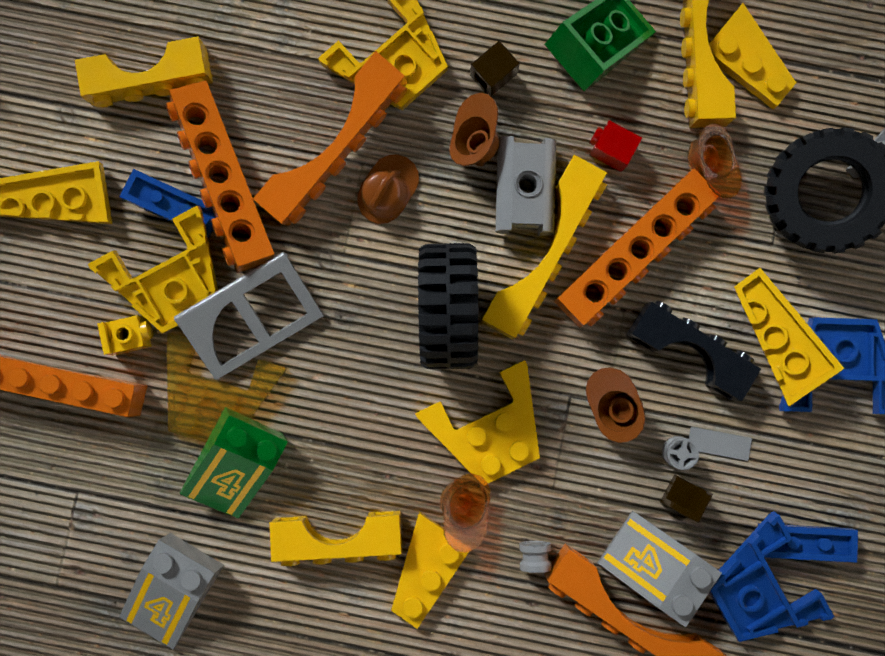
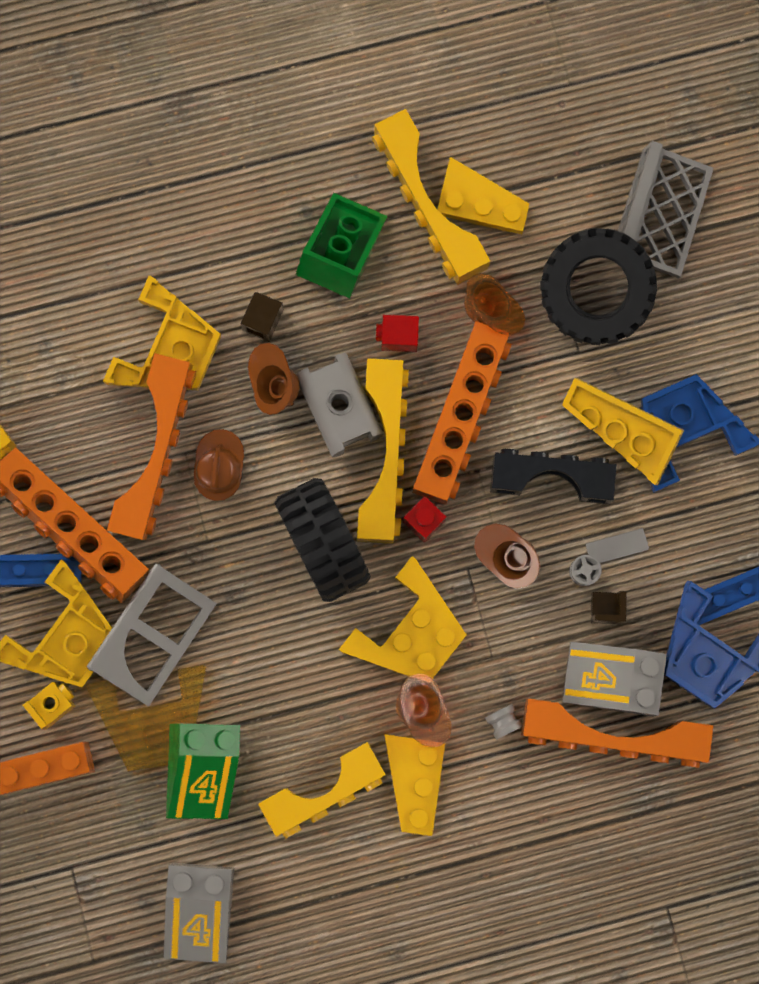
camera: 25 degrees left, 5 degrees down
(553, 331) = (424, 519): none -> red brick

